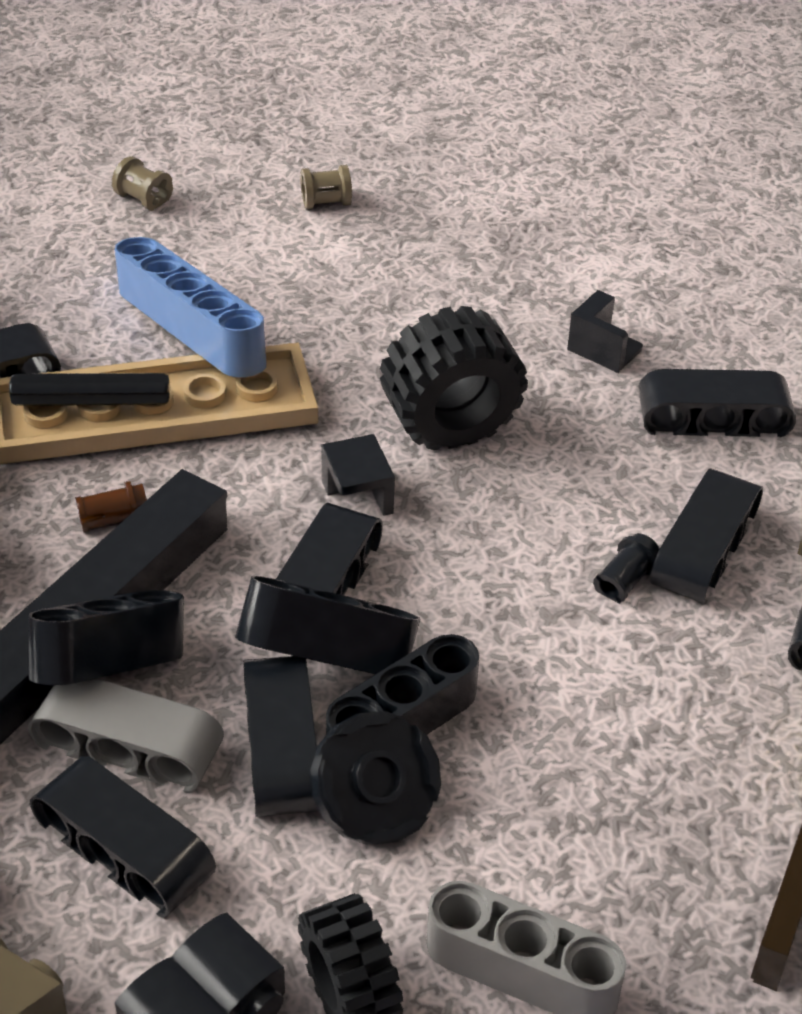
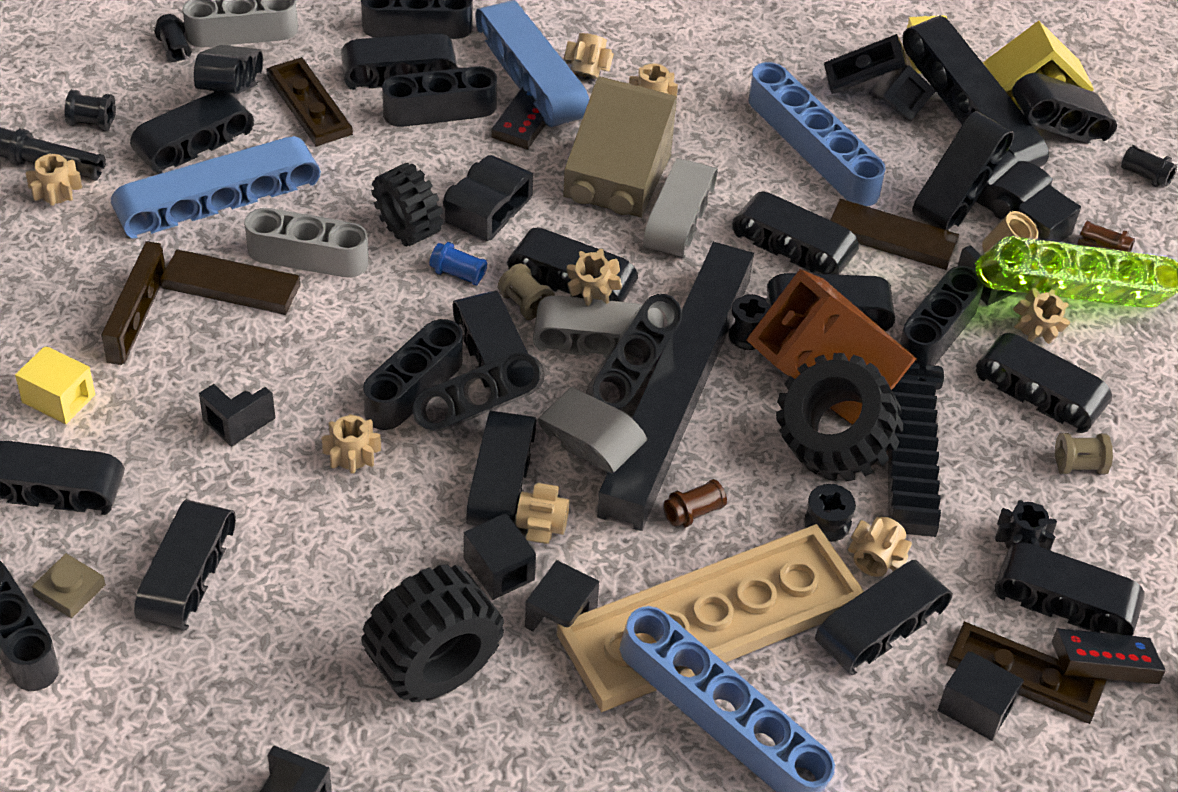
camera: 165 degrees right, 5 degrees up
(89, 389) = (764, 582): black axle -> none
(112, 735) = (595, 265): none -> tan gear
(203, 550) = (592, 429): none -> light grey beam
(203, 805) = (524, 289): none -> dark tan bush
(287, 884) = (457, 263): none -> blue pin
(291, 507) = (542, 513): none -> tan gear
(302, 423) = (561, 596): none -> black panel
(375, 778) = (418, 311): black tile -> none
(502, 628) = (351, 443): none -> tan gear
(633, 561) = (254, 525): black pin -> none
(645, 700) = (238, 416): none -> black panel
(653, 928) = (230, 281): none -> dark brown tile
(716, 402) = (173, 714): black beam -> none

